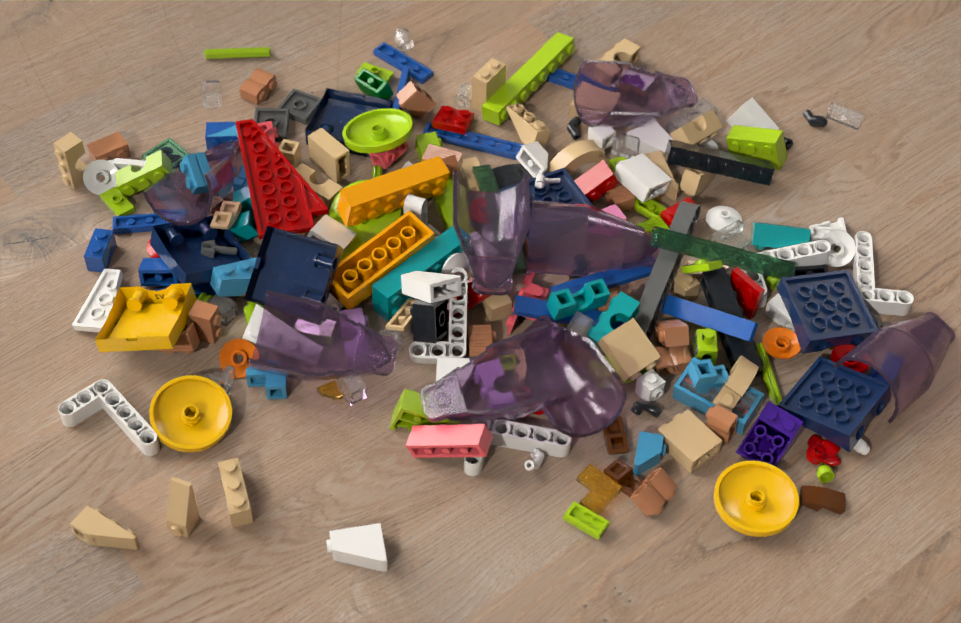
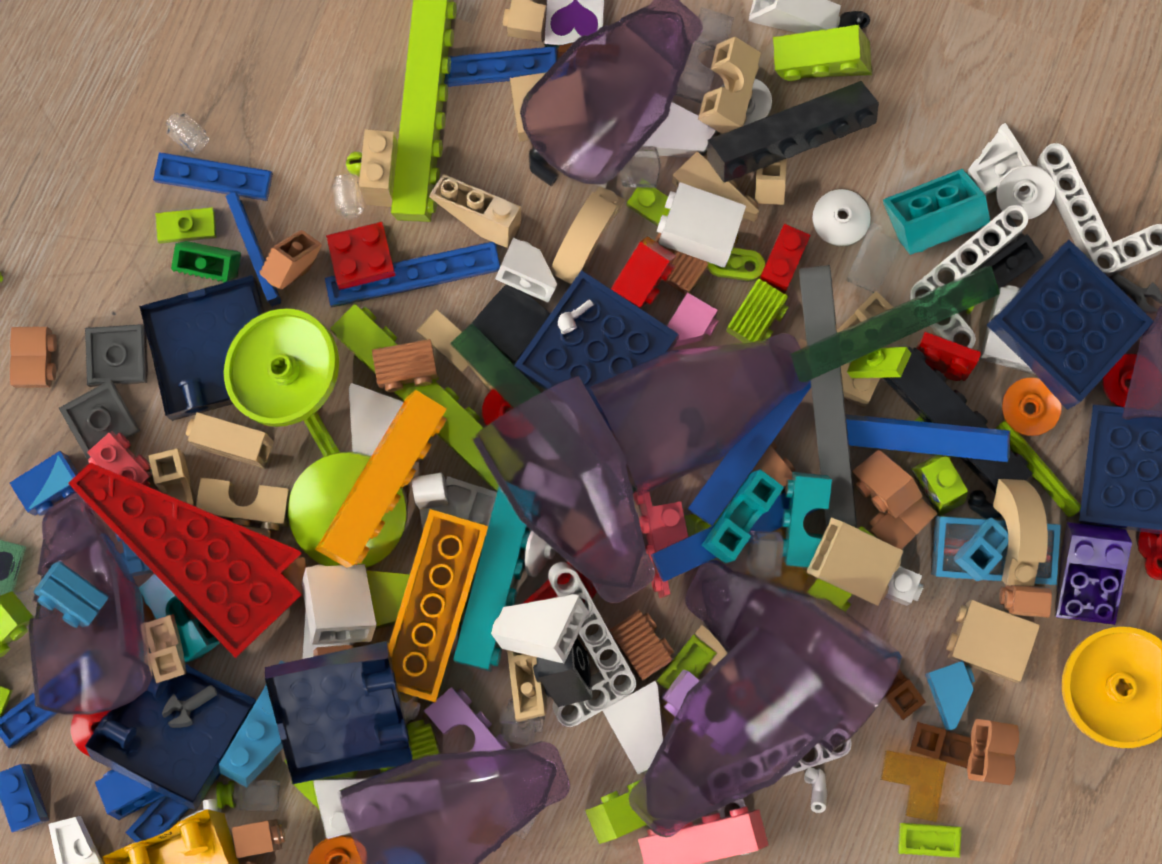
camera: 25 degrees left, 30 degrees up
(638, 406) = (907, 615): black arm -> none

